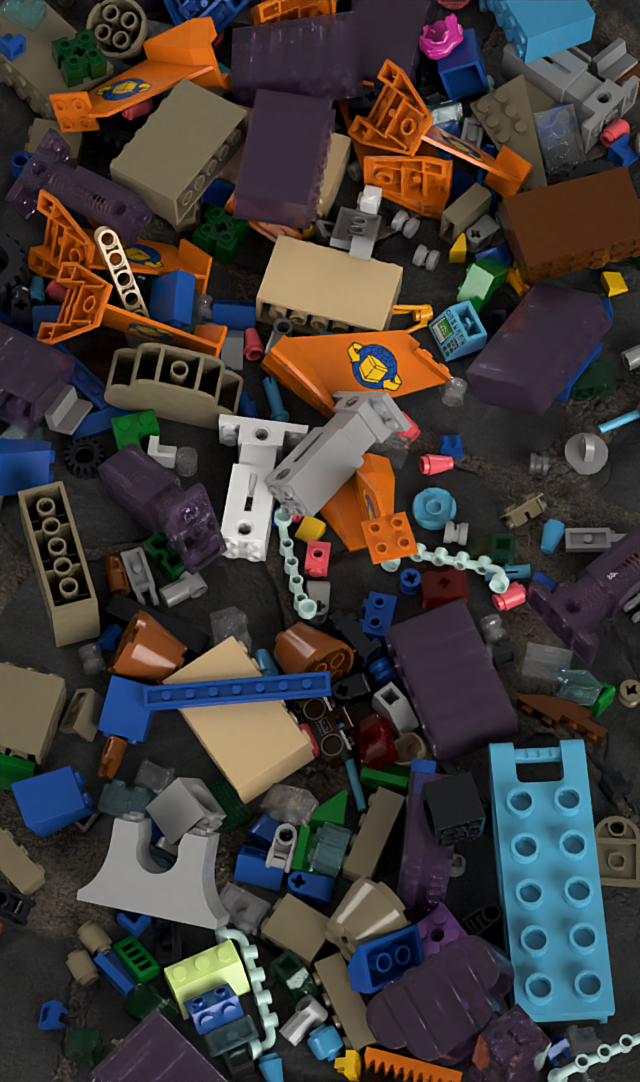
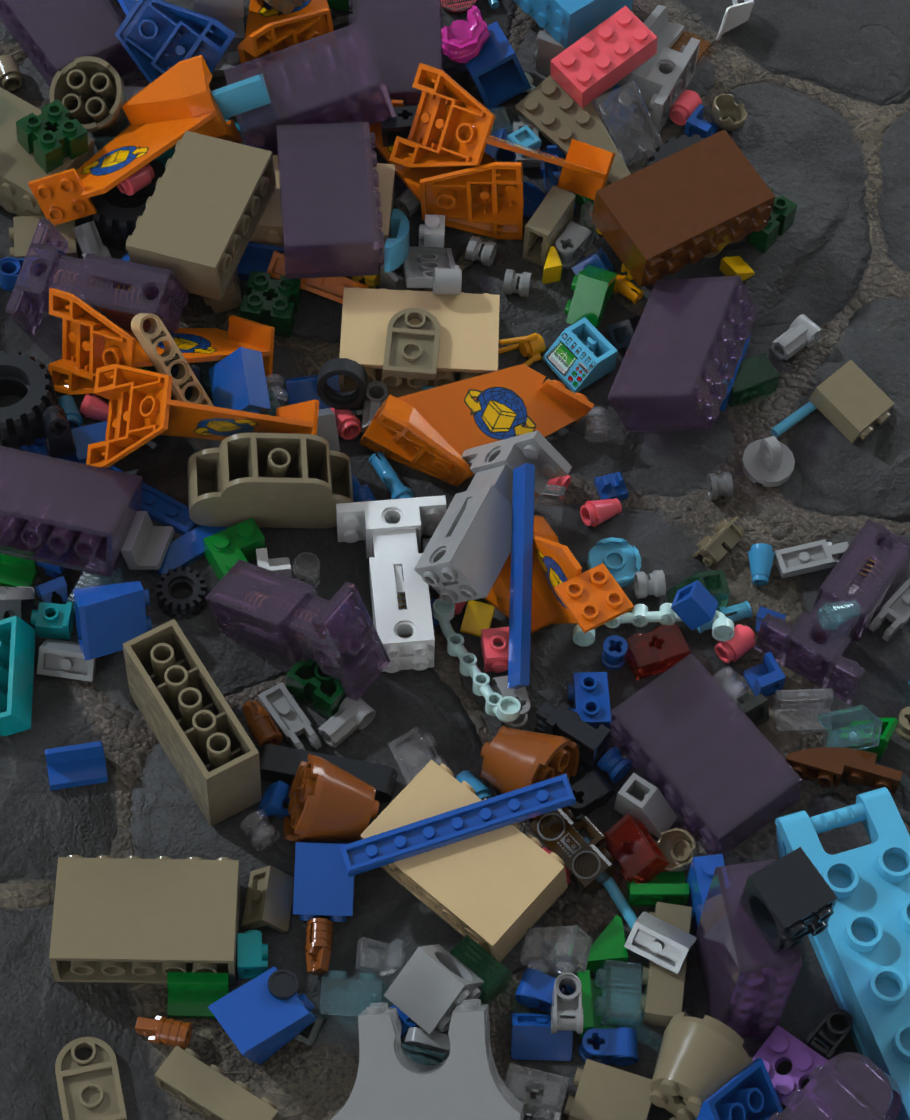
camera: 15 degrees left, 5 degrees down
(58, 752) = (251, 955): none -> teal brick
(71, 781) = (283, 984): none -> black piece
(90, 154) = (89, 240): none -> light grey piece
(238, 55) = (242, 96): none -> medium azure slope
(249, 325) = (337, 399): none -> black tyre
(318, 297) = (410, 348): none -> dark tan tile
(332, 211) = (397, 247): none -> medium azure slope
(345, 505) = (521, 576): none -> blue tile
(370, 817) = (660, 942): none -> light grey panel
(469, 134) = (525, 137): none -> medium azure tile
(482, 558) = (694, 605): none -> blue panel
(524, 629) = (765, 677): none -> blue panel
(551, 78) = (603, 56): none -> coral brick
(590, 592) = (837, 613): none -> clear light blue cone

